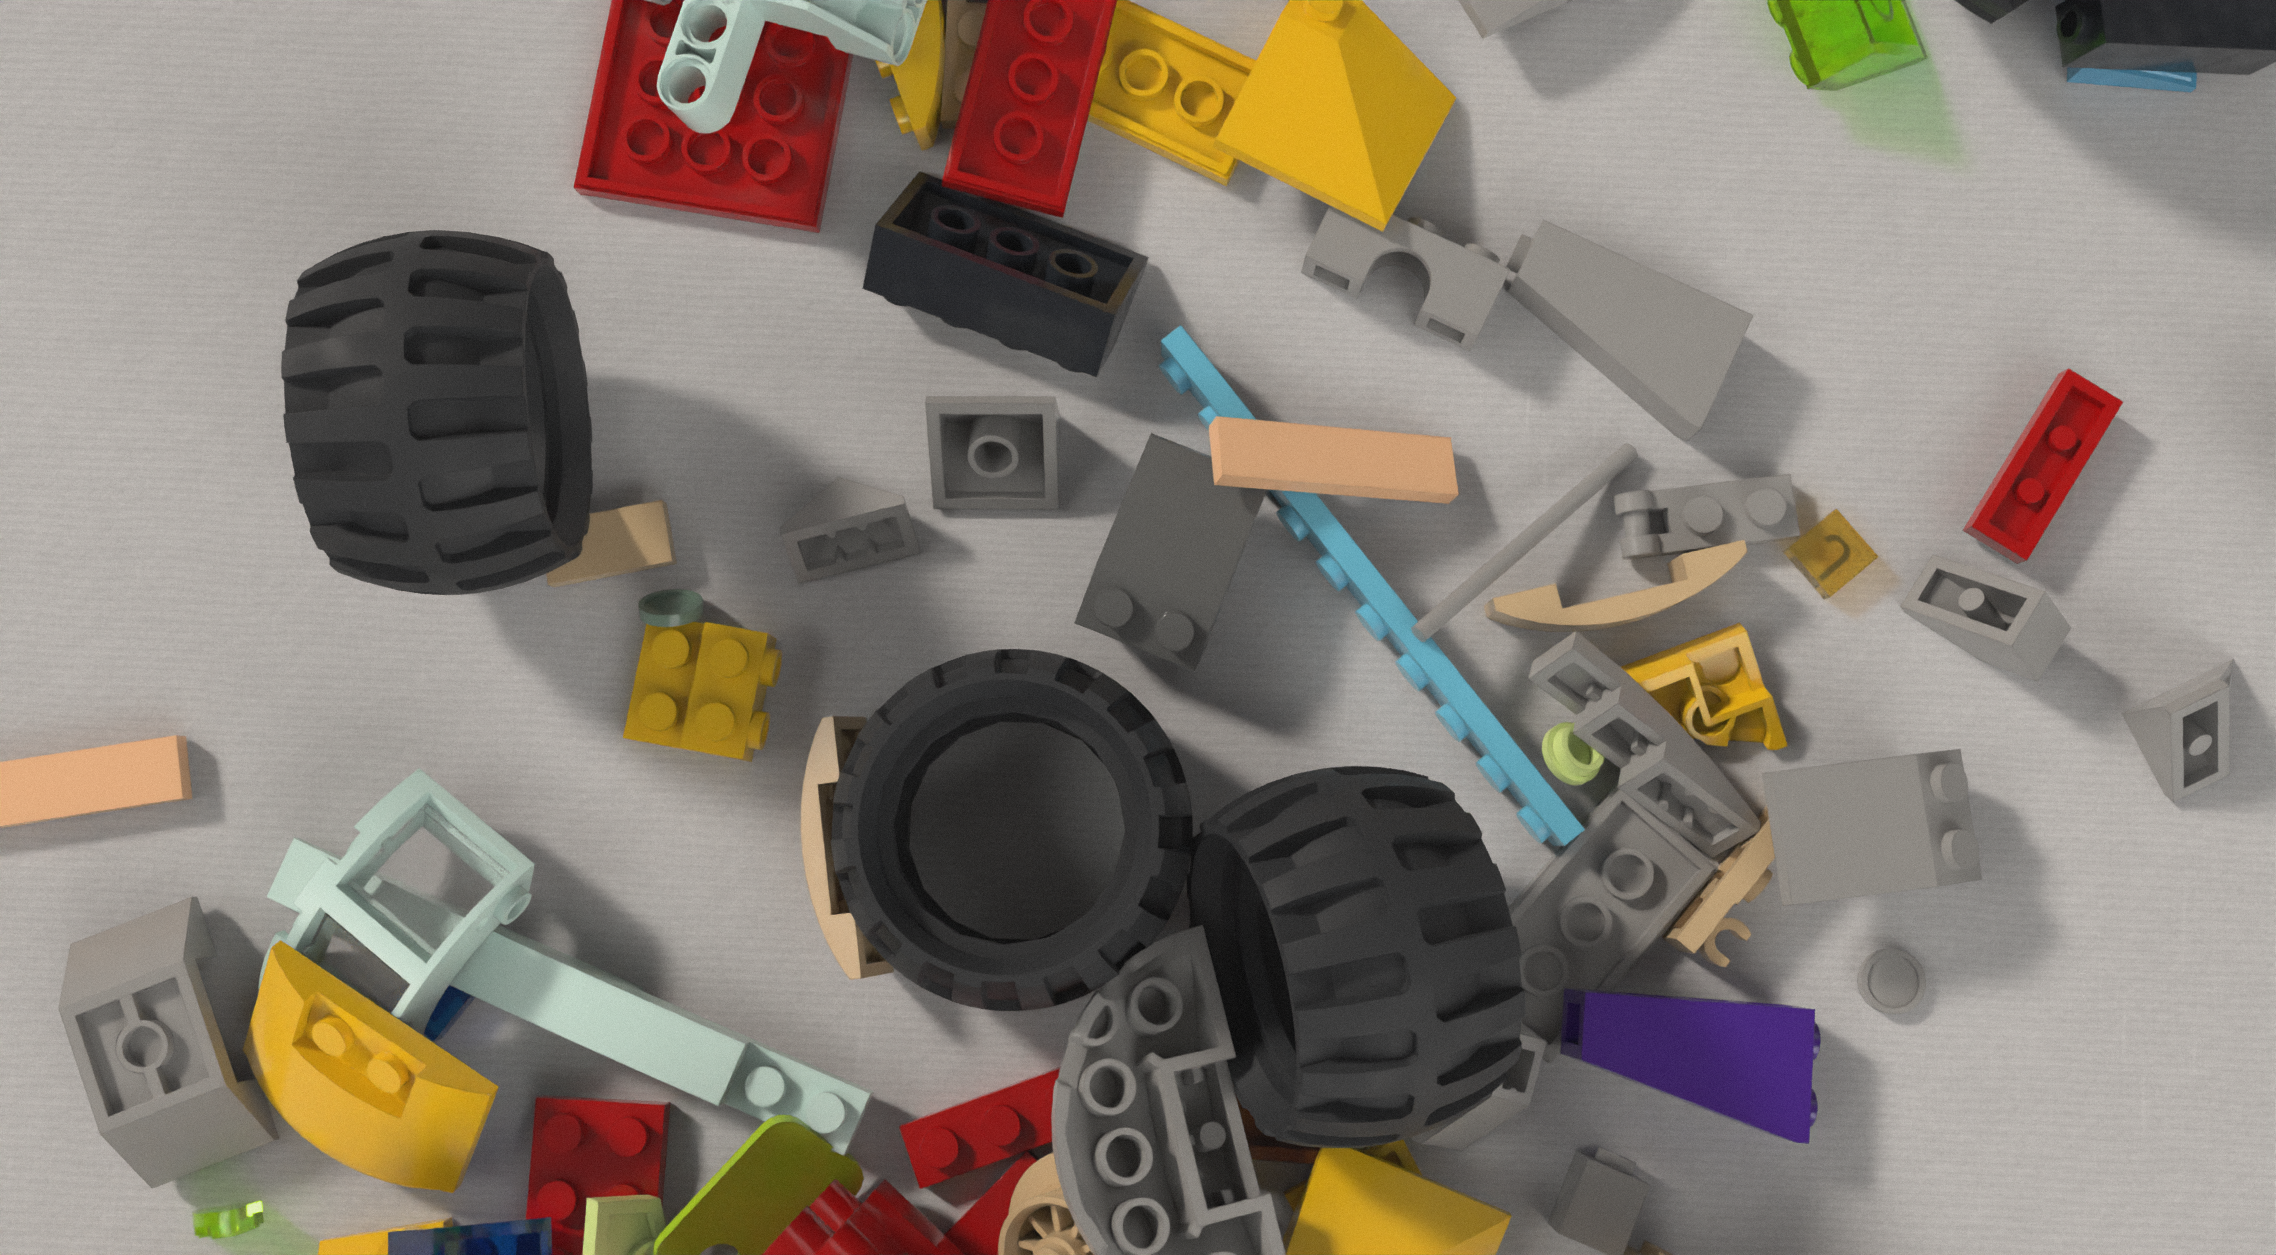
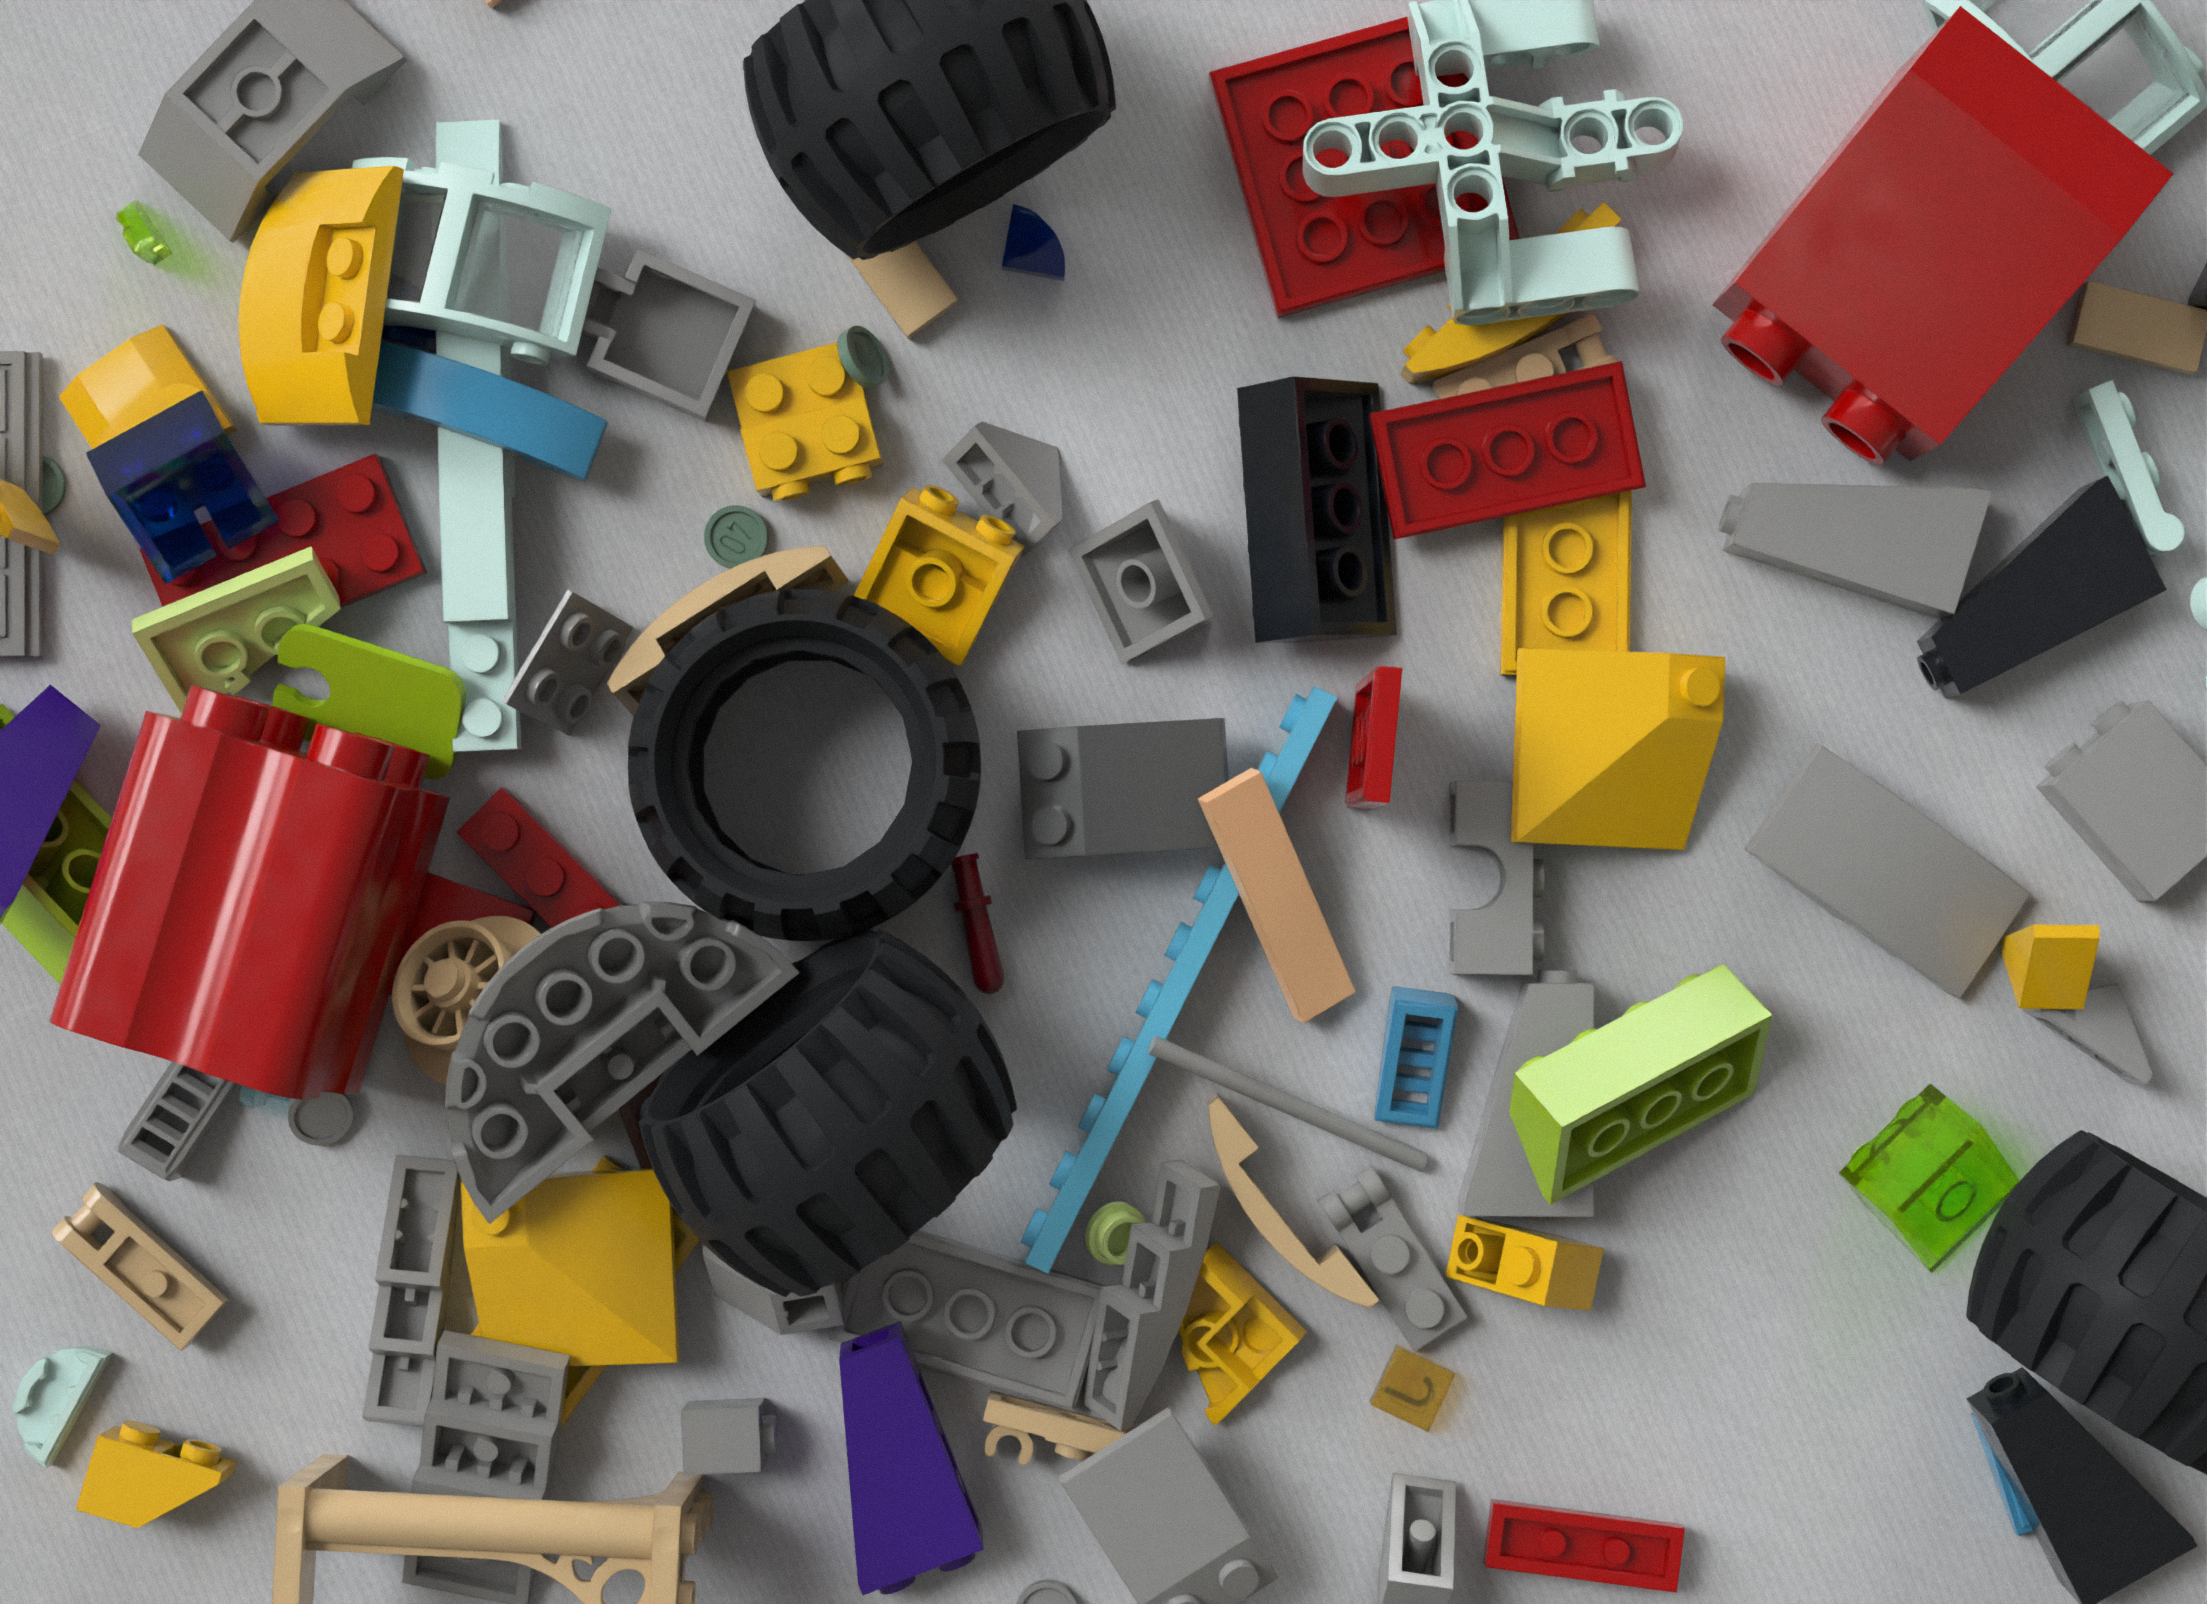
camera: 60 degrees right, 5 degrees up
(543, 971) = (487, 409): none -> dark azure slope
(558, 776) = (665, 332): none -> light grey piece
(650, 413) = (1032, 246): none -> clear blue tile
(774, 801) = (735, 536): none -> sand green piece
(814, 1008) = (568, 663): none -> light grey hinge
(892, 624) = (941, 569): none -> yellow plate
(1236, 296) = (1373, 738): none -> red tile
(1248, 751) = (980, 939): none -> dark red piece
(1521, 430) = (1418, 1003): none -> dark azure slope
(1649, 217) = (1638, 1080): none -> lime slope
(1764, 400) = (1524, 1263): none -> yellow slope

